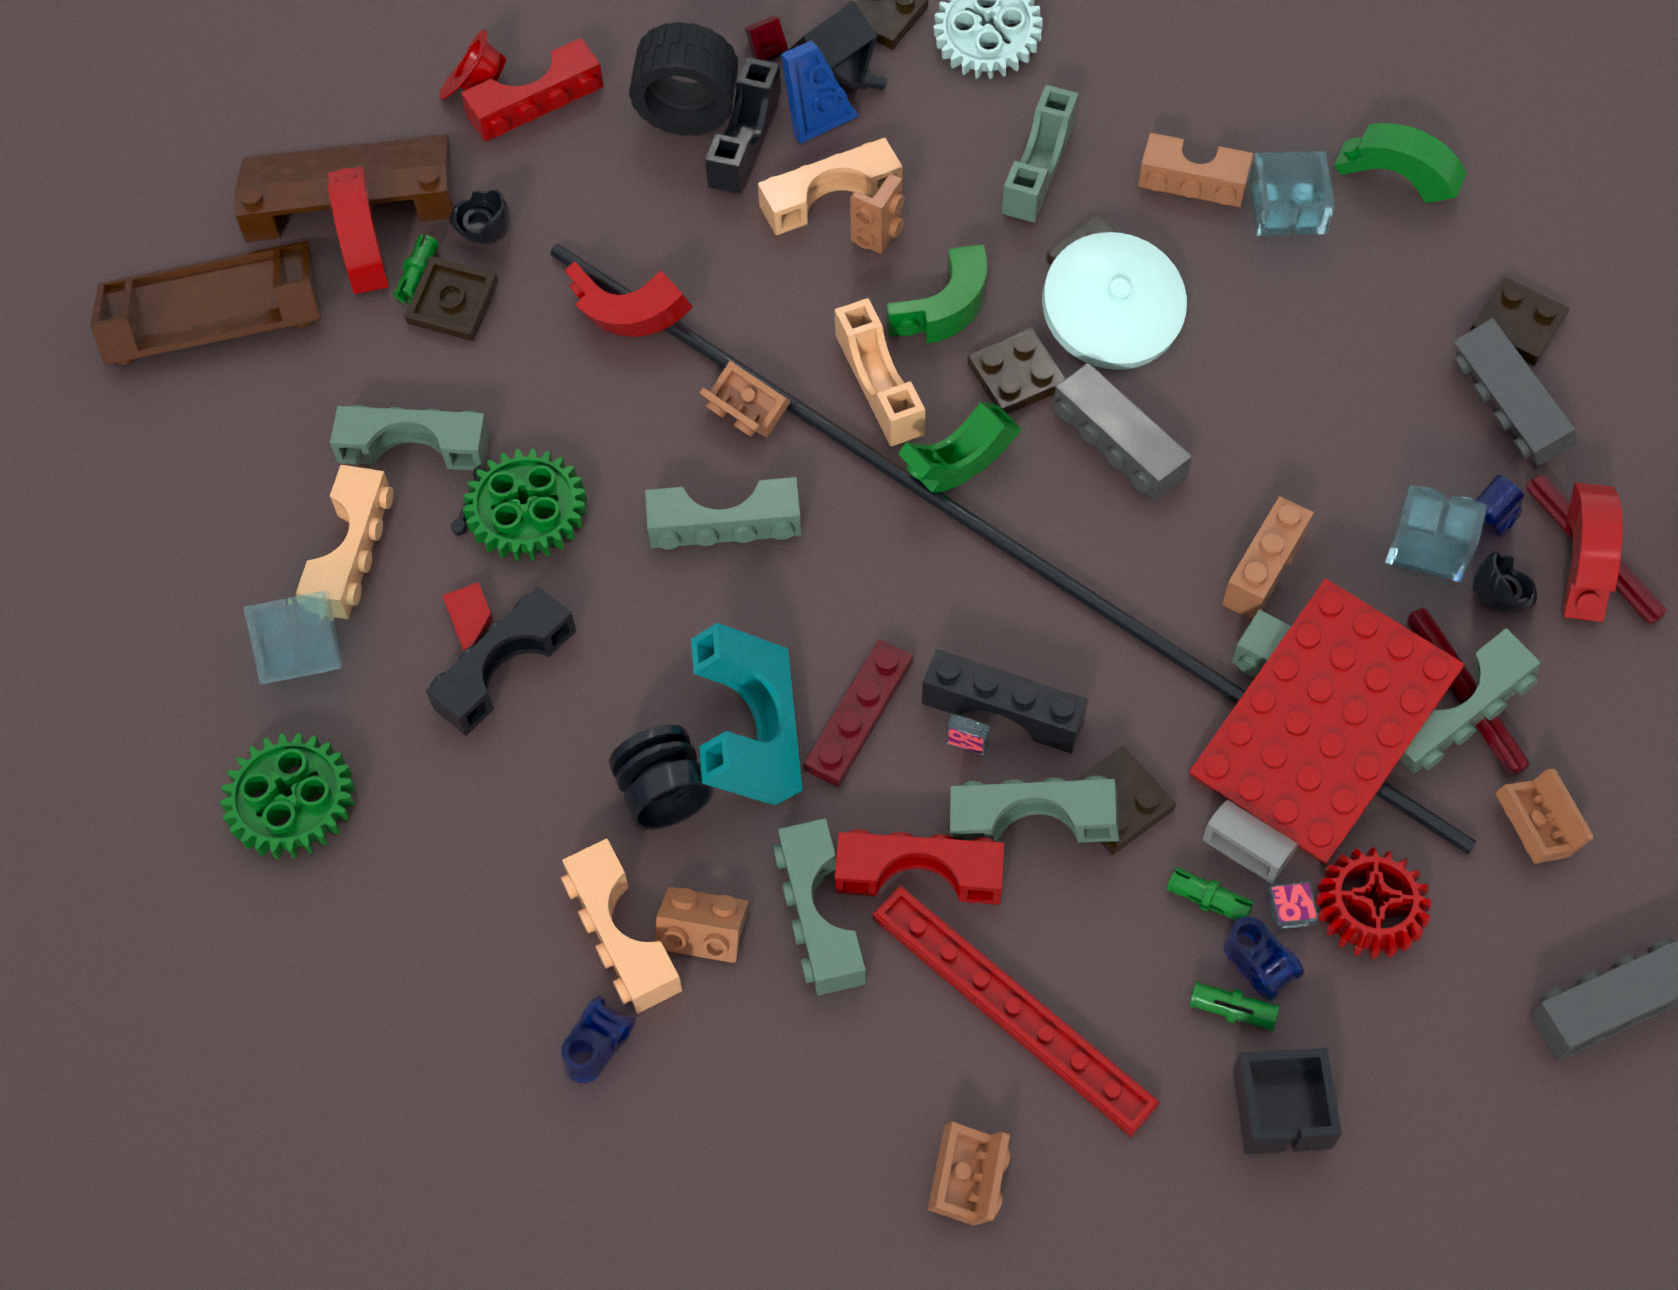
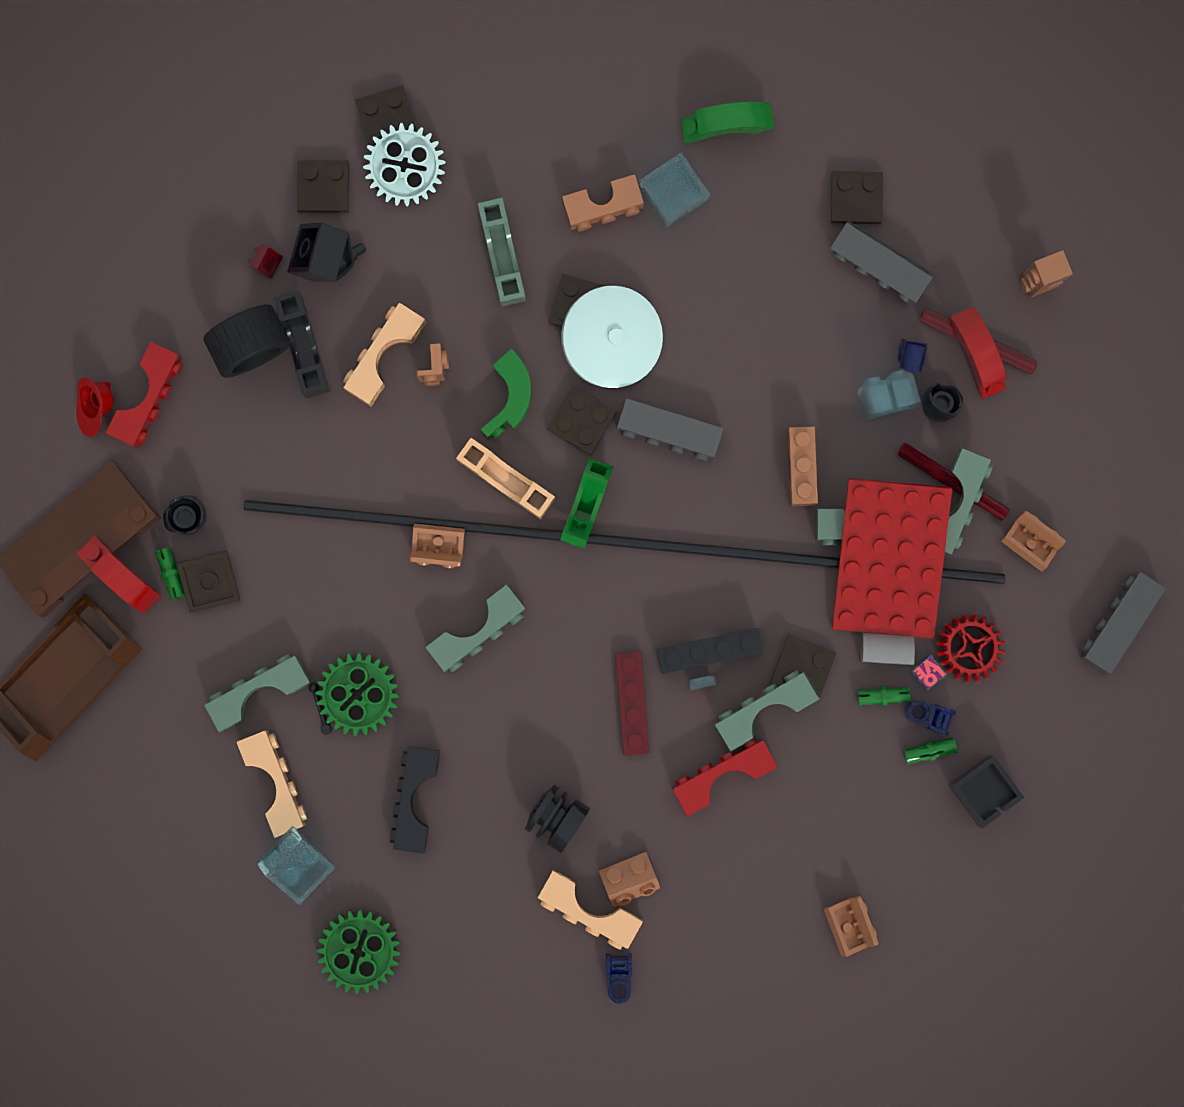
camera: 35 degrees left, 25 degrees up
(468, 613) = (375, 782): red tile -> none
(632, 314) = (323, 532): red arch -> none
(761, 675) = (608, 768): teal arch -> none
(813, 93) = (335, 298): blue wing -> none
(832, 952) = (710, 855): sand green arch -> none
(1016, 1011) = (818, 822): red tile -> none

